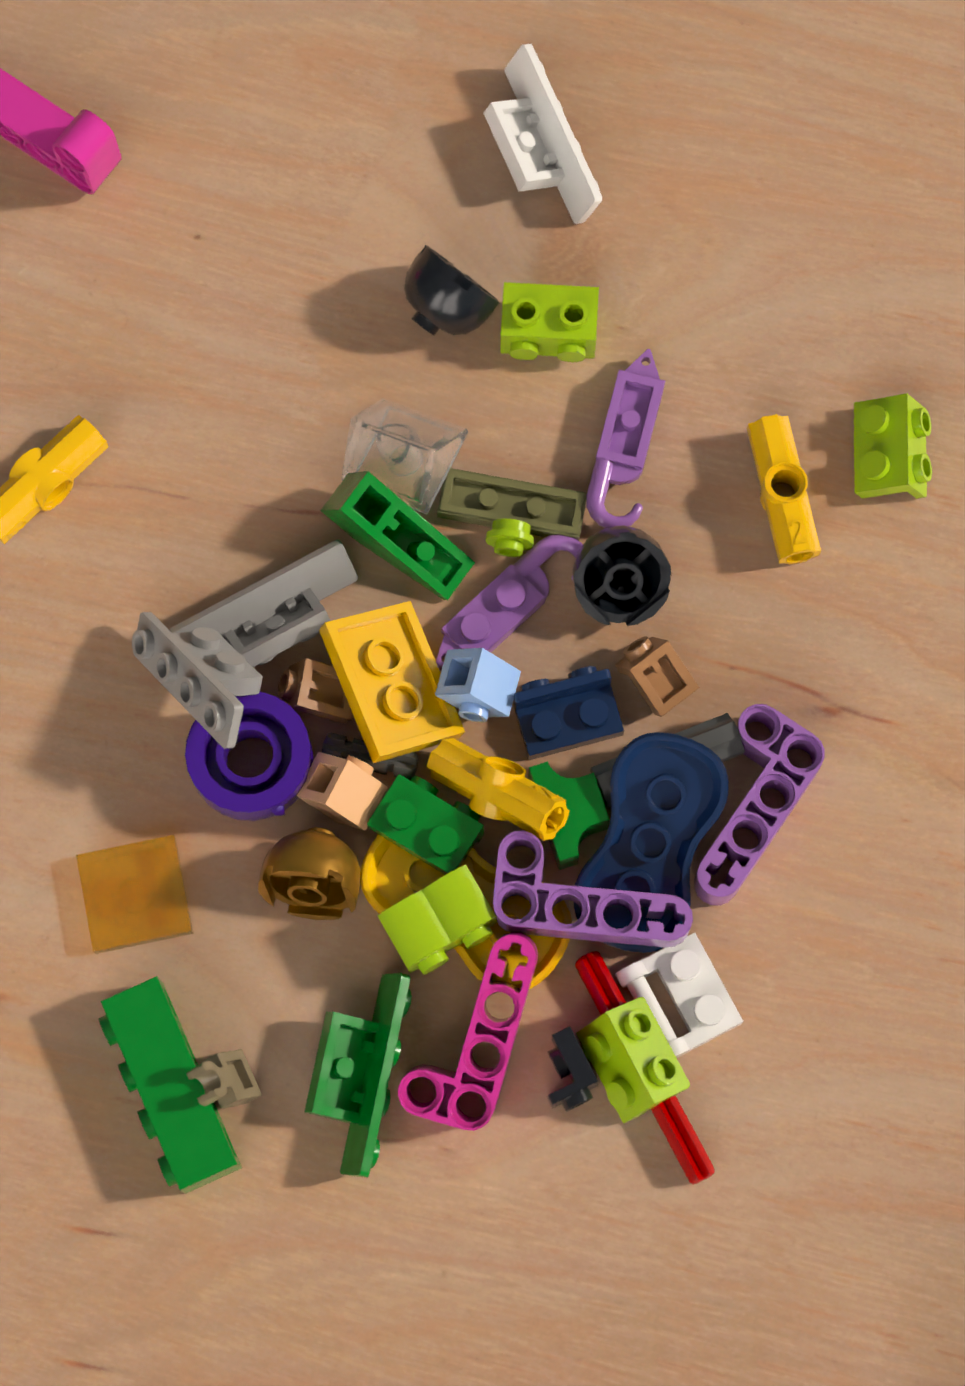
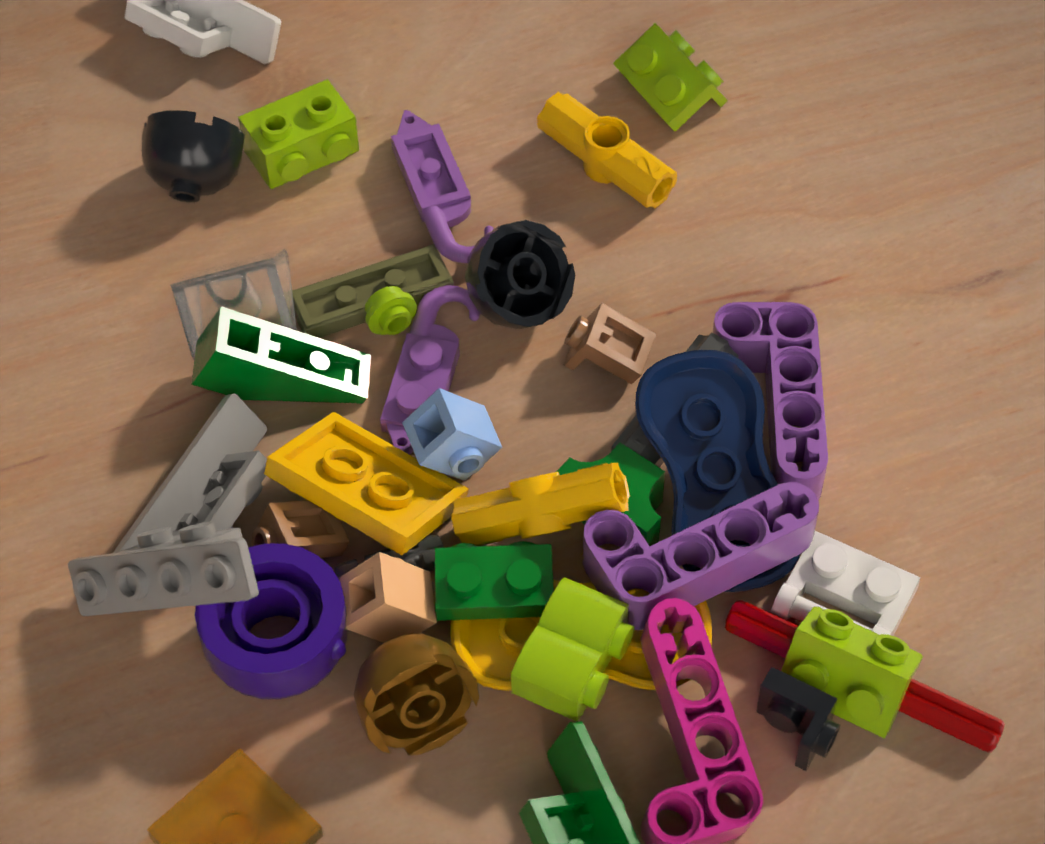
camera: 35 degrees left, 20 degrees down
(567, 712) = (551, 420): dark blue bracket -> none

